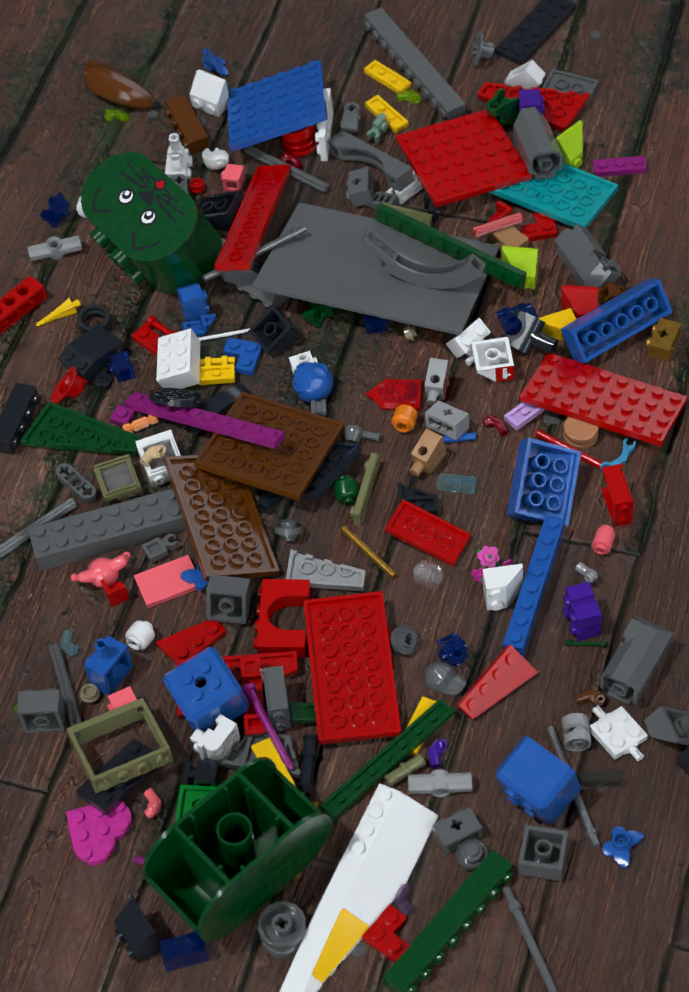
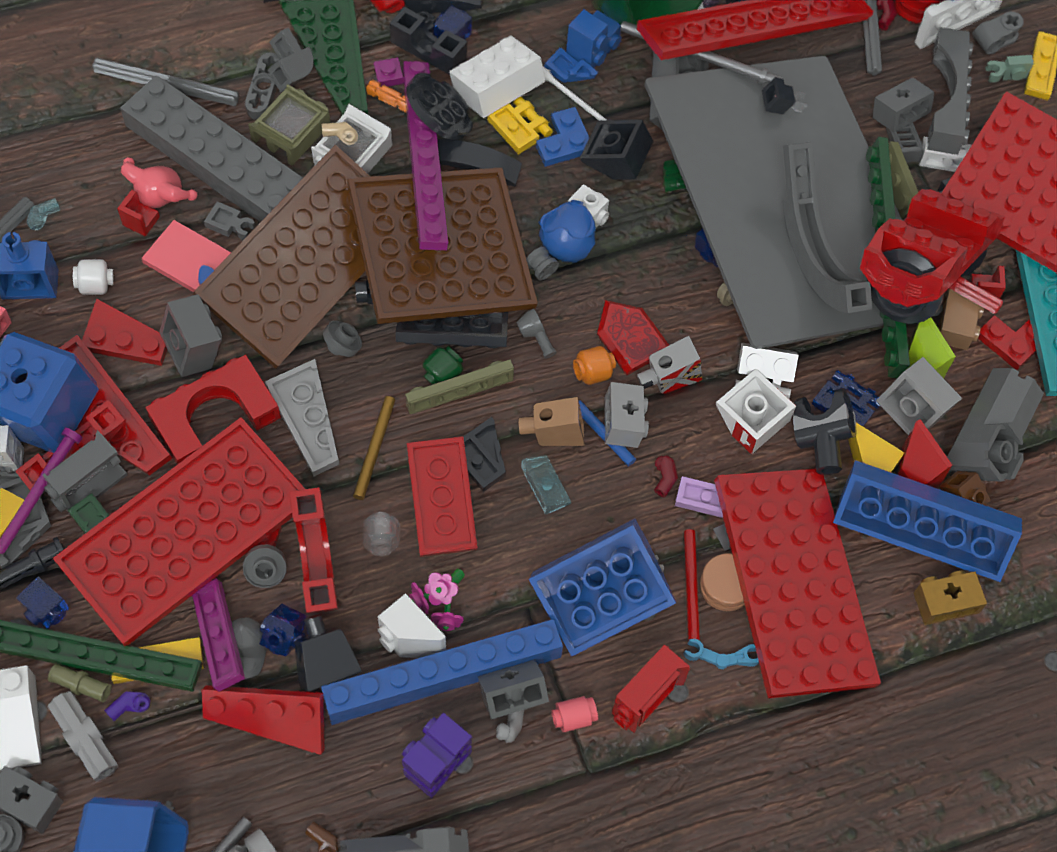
camera: 45 degrees right, 10 degrees up
(78, 456) = (292, 63): none -> dark grey brick
(135, 380) = (412, 35): none -> black arch
(149, 339) = (516, 24): red plate -> none
(314, 234) = (780, 97): none -> black piece
(341, 764) = (42, 604): none -> clear blue brick
(431, 681) = (218, 635): none -> magenta tile
(439, 618) = (315, 550): none -> red arch
(474, 221) = (925, 253): none -> red piece
(484, 635) = (323, 655): none -> black torso
(545, 282) = (918, 395): none -> light grey brick
(569, 558) = (513, 689): none -> dark grey brick
(569, 643) = (418, 810): dark green hinge -> none

